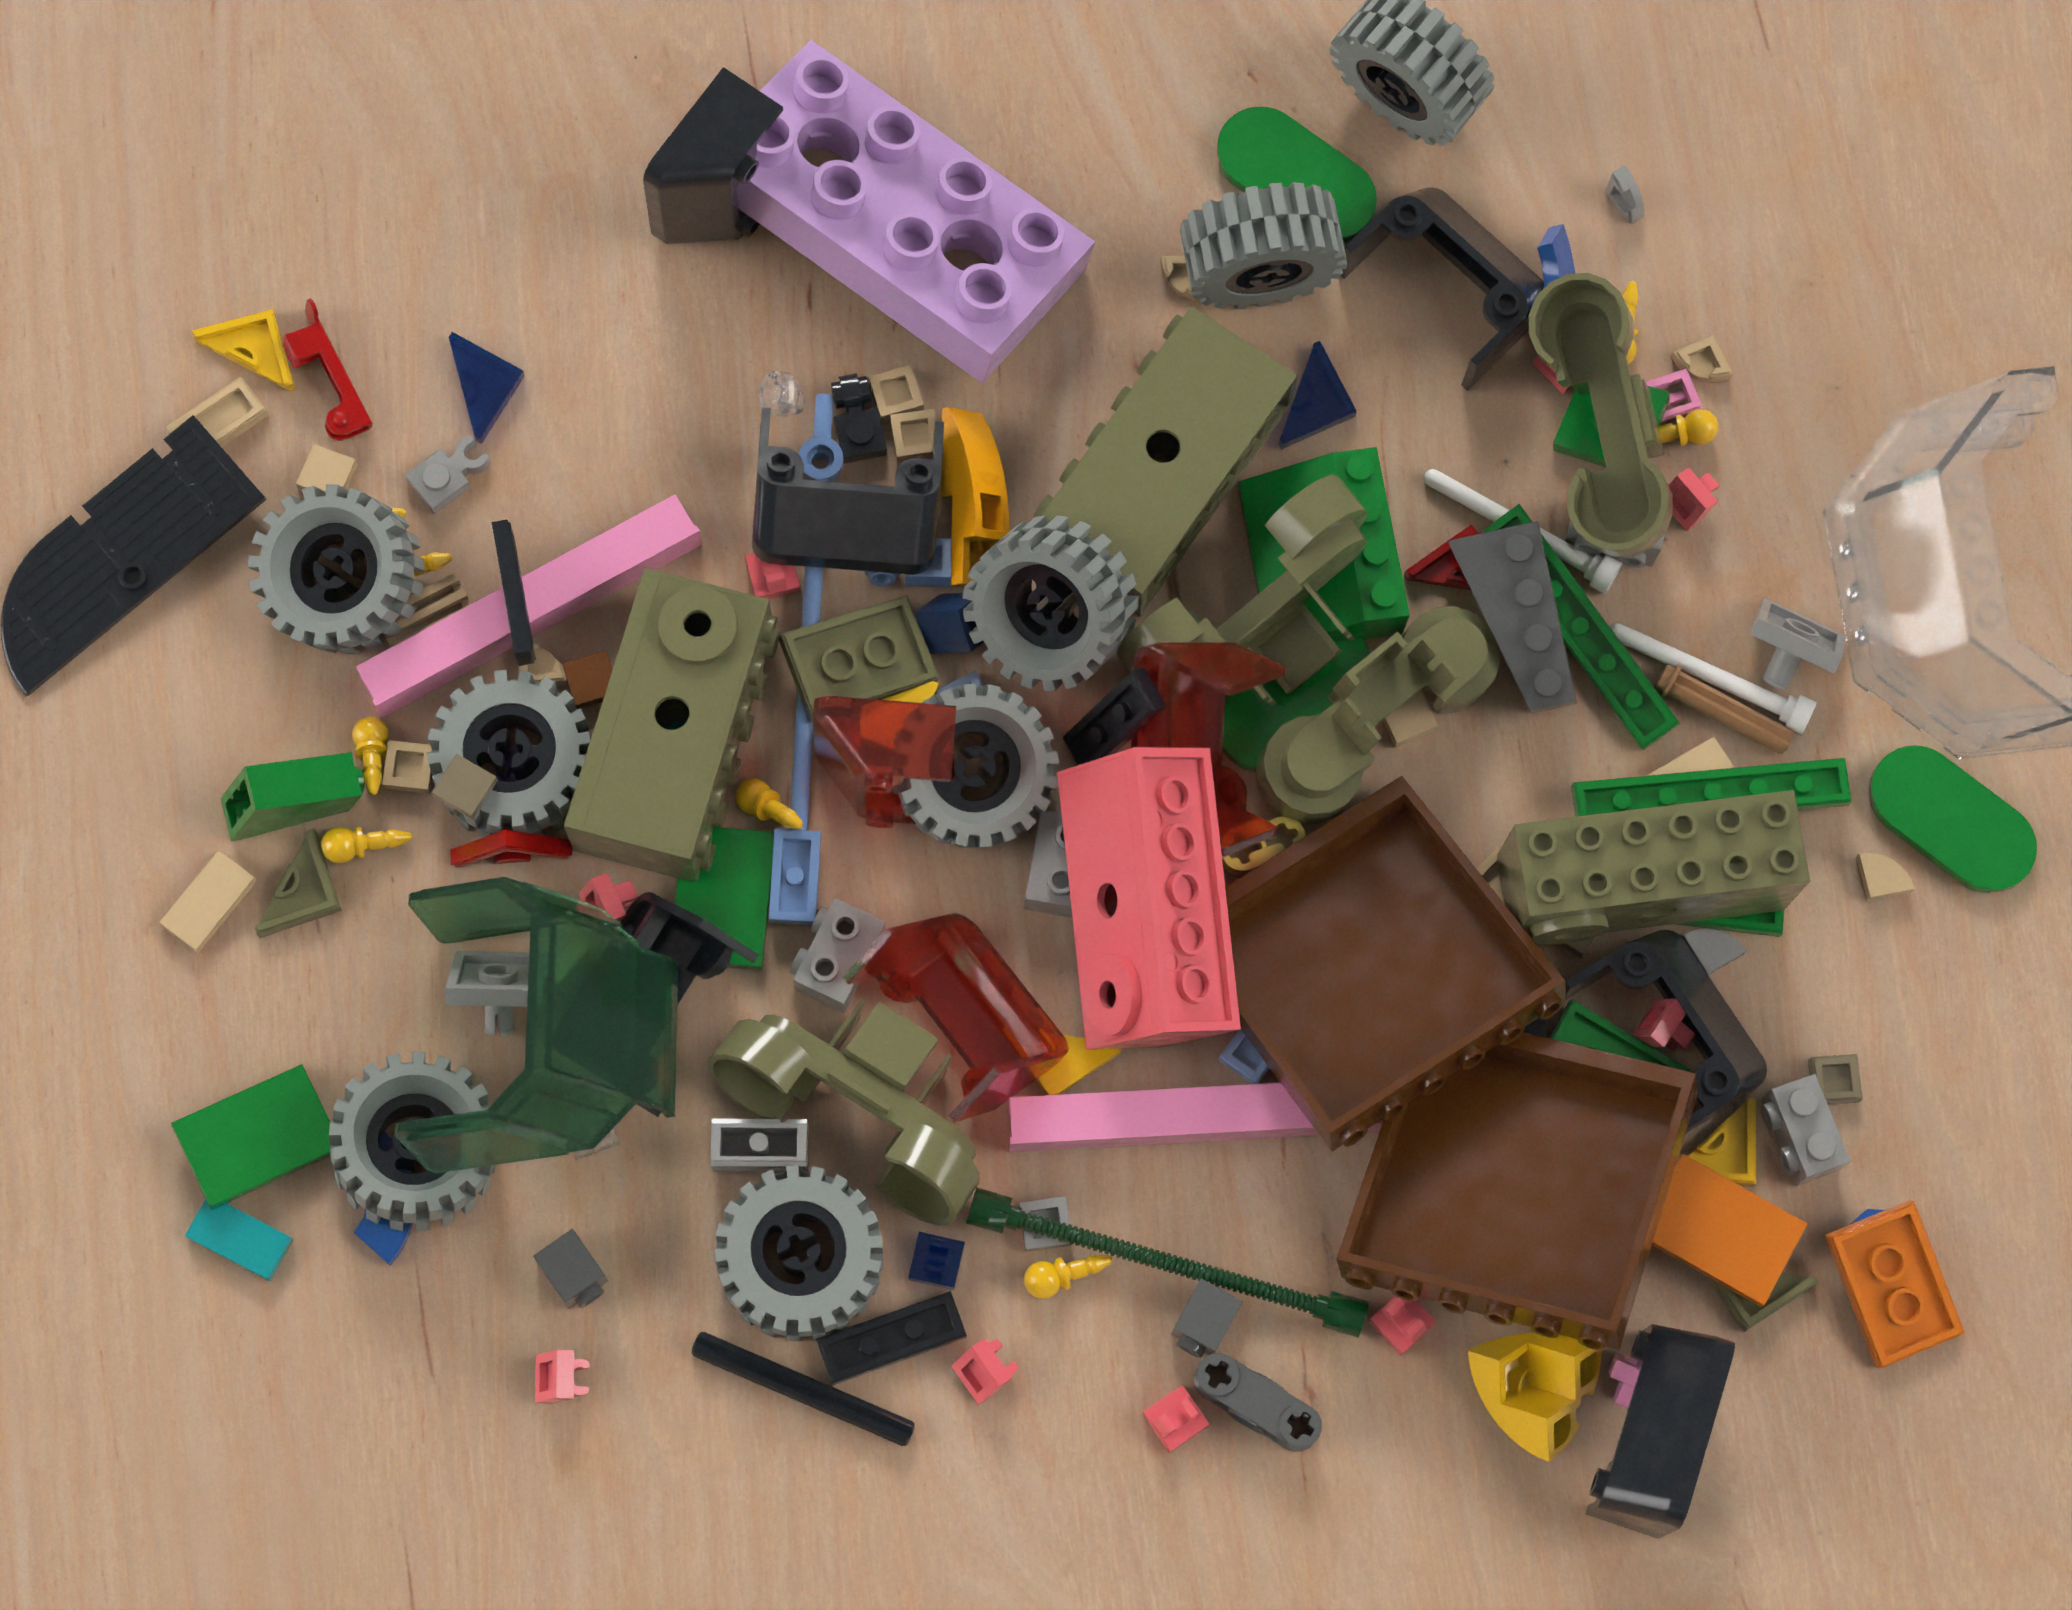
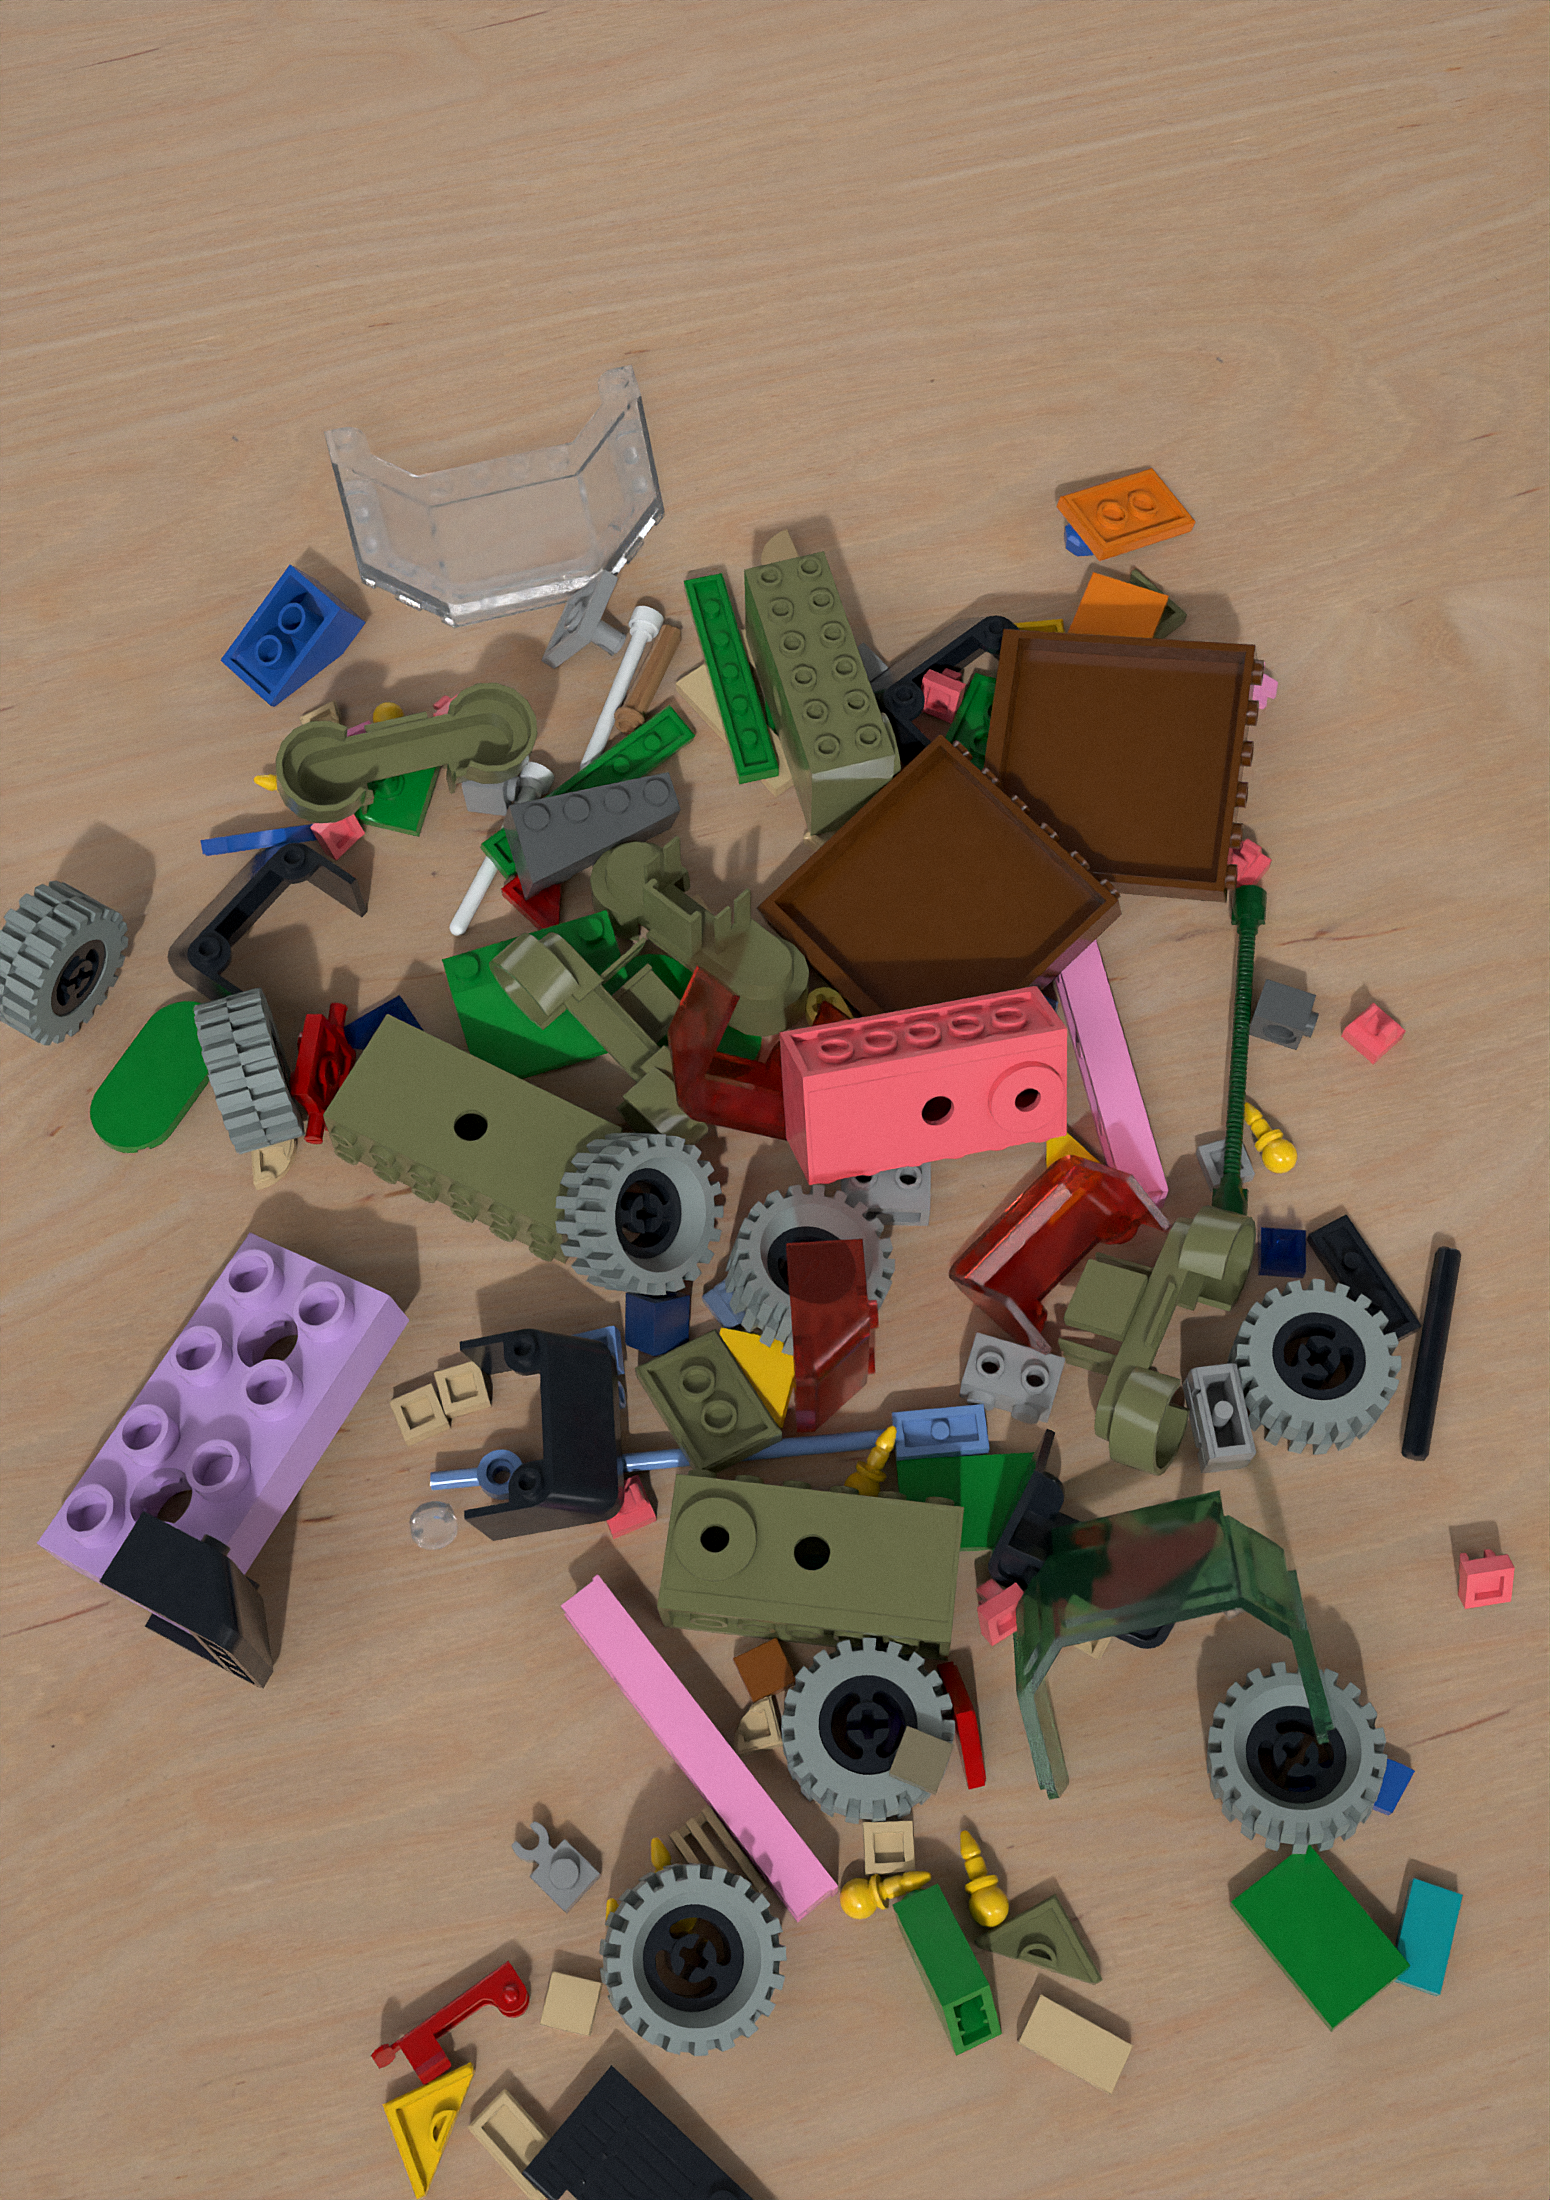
camera: 90 degrees left, 10 degrees down
(485, 382) = (446, 1844): clear blue tile -> none
(490, 981) = (1109, 1701): light grey tile -> none
(514, 592) = (697, 1748): black tile -> none
(572, 1270) = (1377, 1583): dark grey brick -> none
(859, 431) = (463, 1444): black plate -> none
(977, 489) = (537, 1305): light orange slope -> none
(983, 1371) = (1376, 1193): coral tile -> none
(1115, 718) = (746, 1145): black tile -> none
(1257, 1402) = (1346, 964): dark grey piece -> none
(1270, 321) = (321, 1066): none -> red plate
(1535, 1387) = (1286, 759): yellow brick -> none
(1625, 194) = (165, 797): light grey tile -> none
(1663, 1430) = (1310, 628): black windscreen -> none
(1804, 1130) = (1013, 582): light grey brick -> none
(1819, 334) = (291, 636): none -> blue slope
(1838, 1077) = (959, 574): dark tan tile -> none
(1952, 819) = (720, 511): green tile -> none

